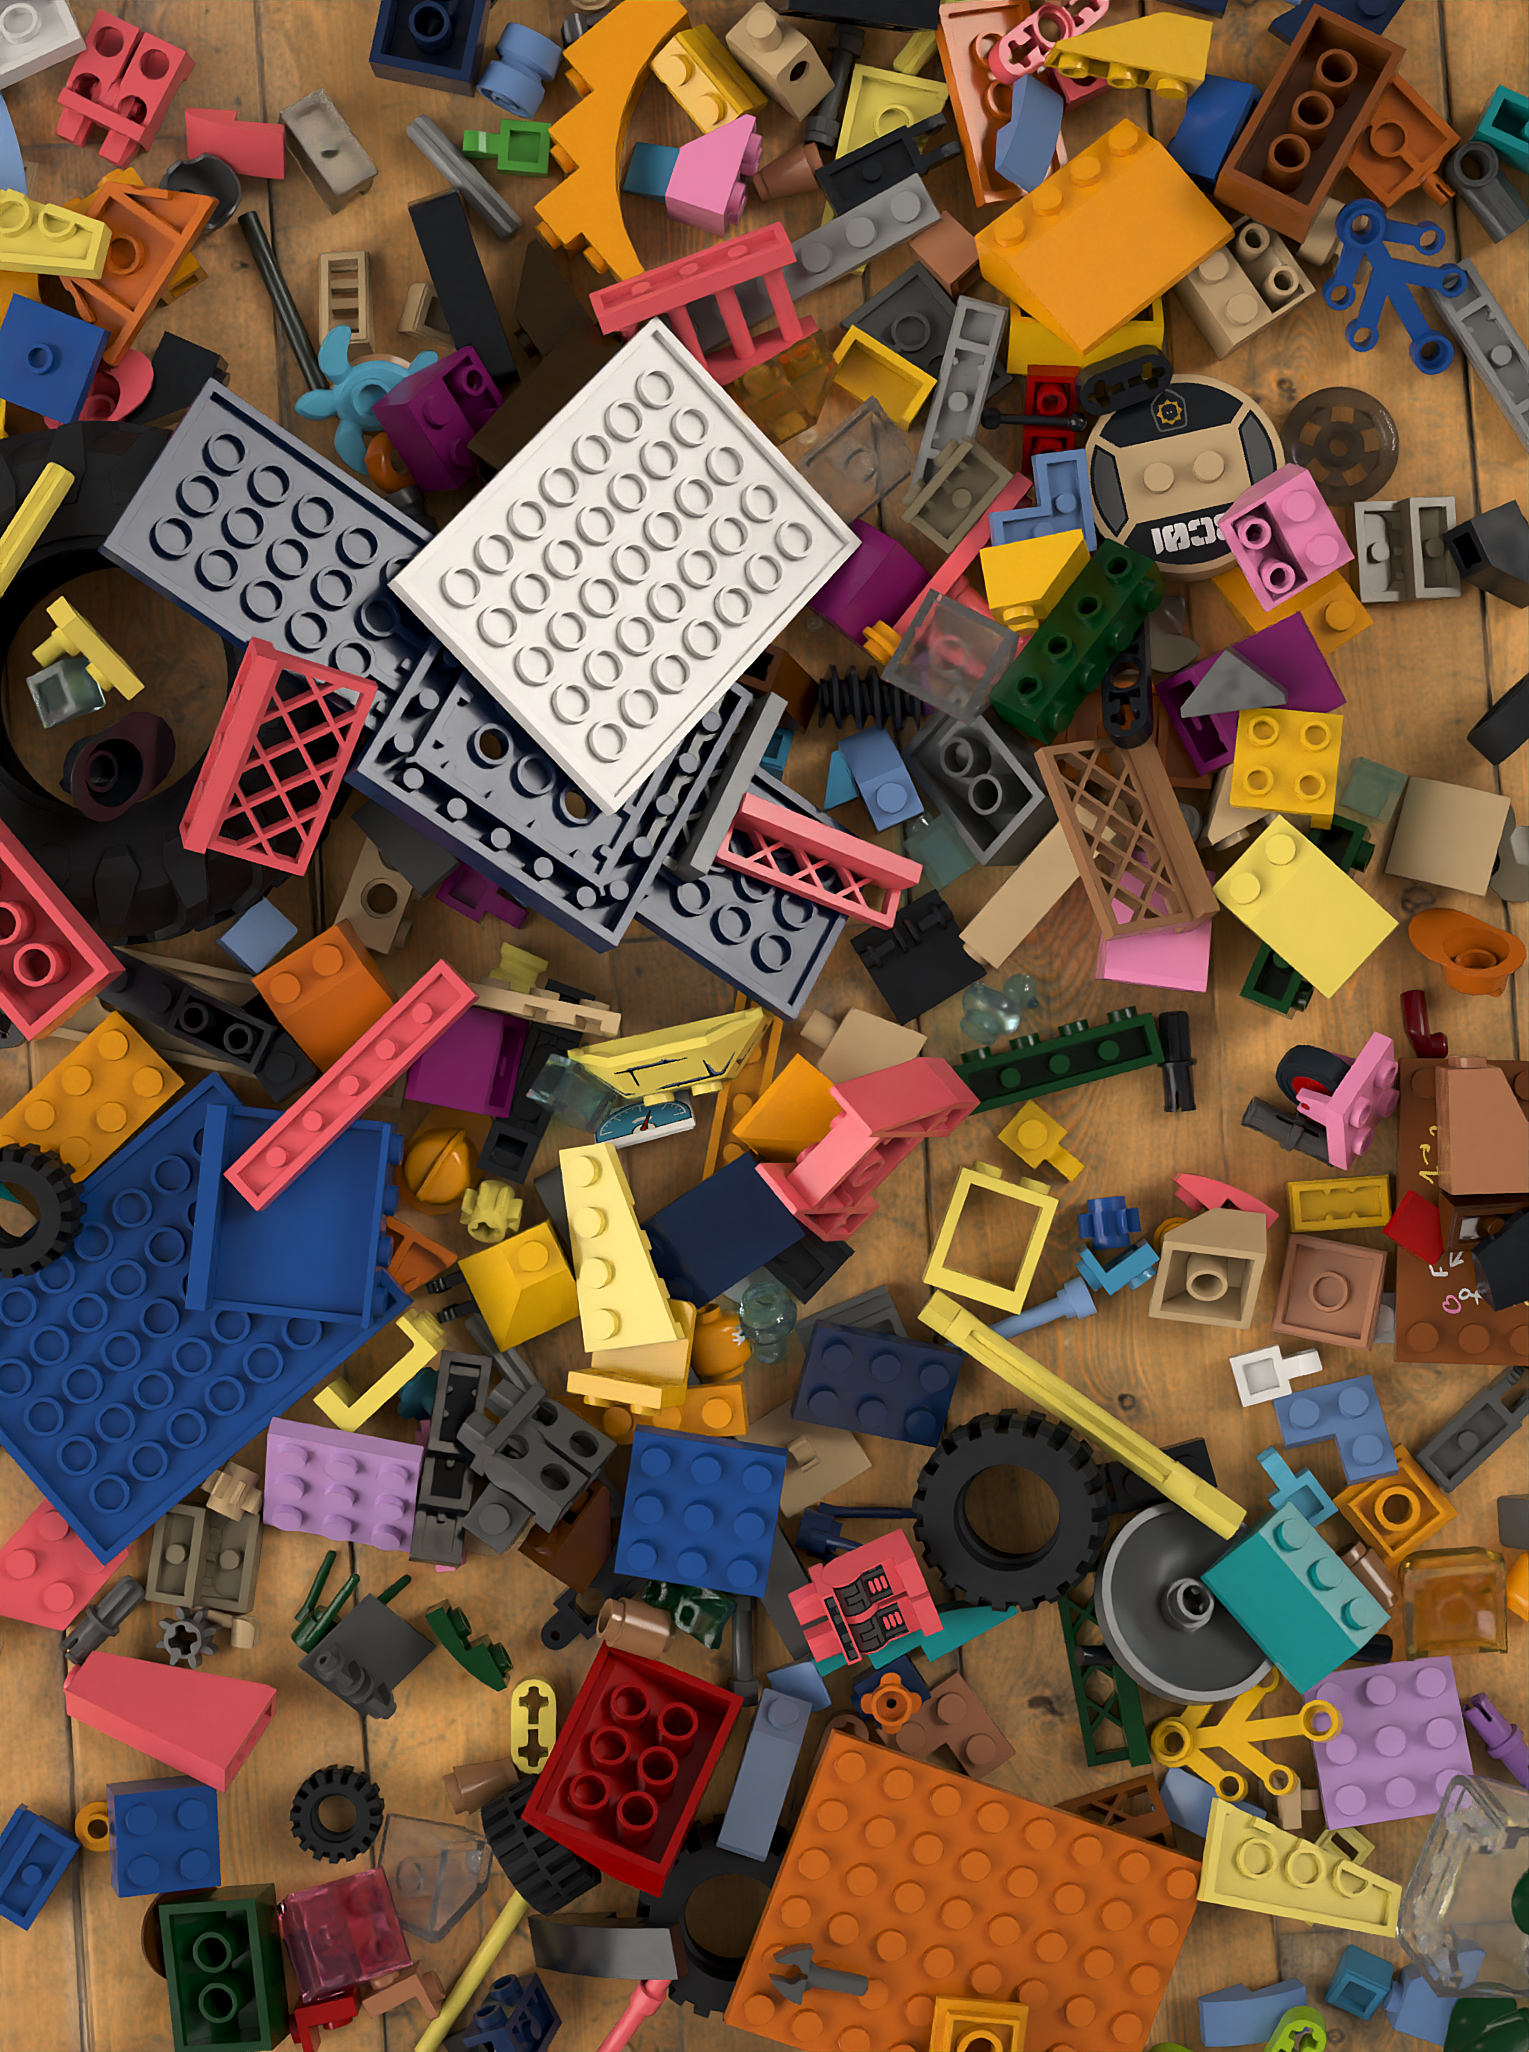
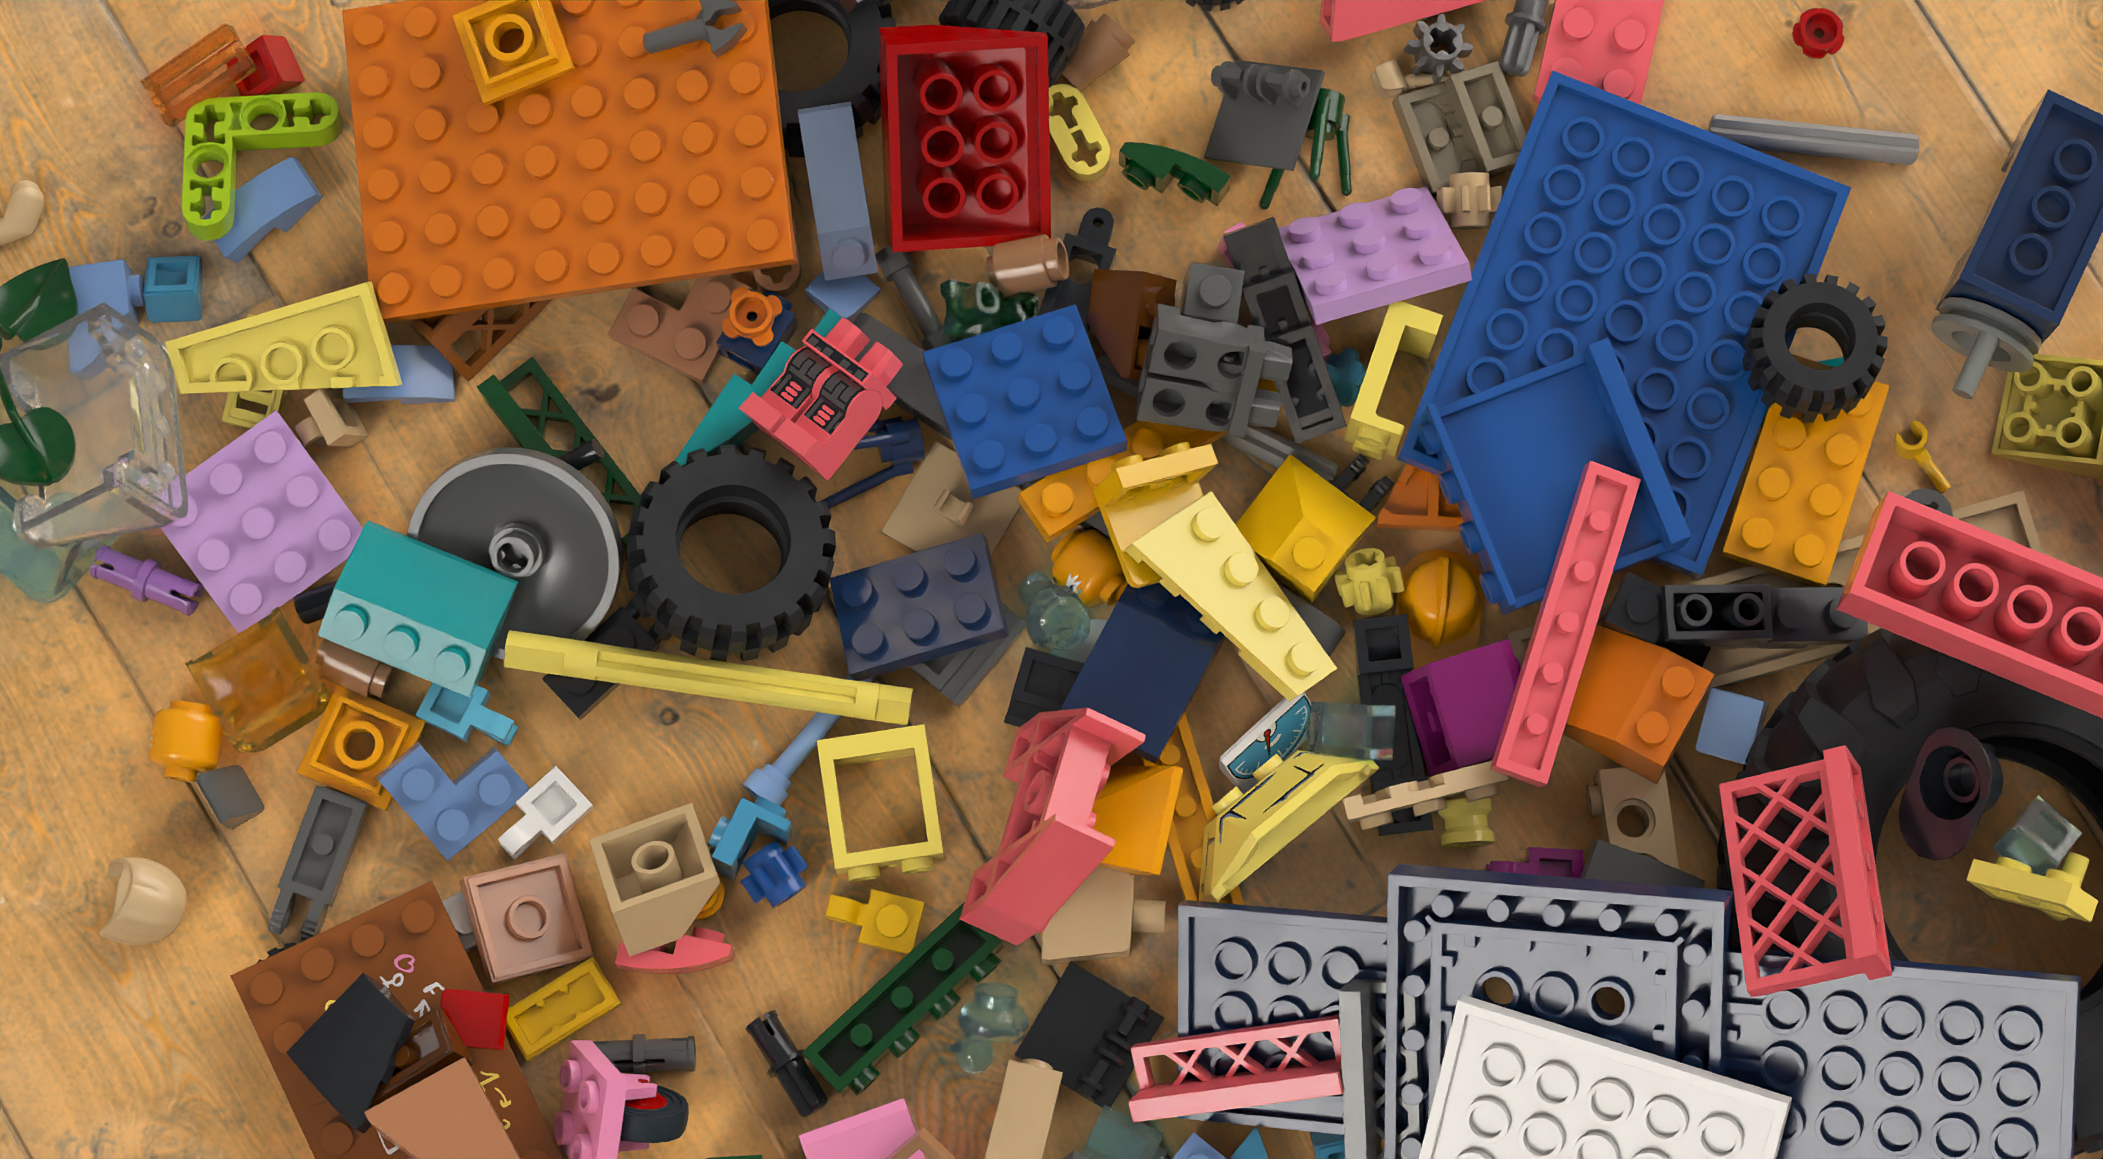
camera: 155 degrees right, 10 degrees down
(1235, 1734) = (409, 455): yellow plant -> none

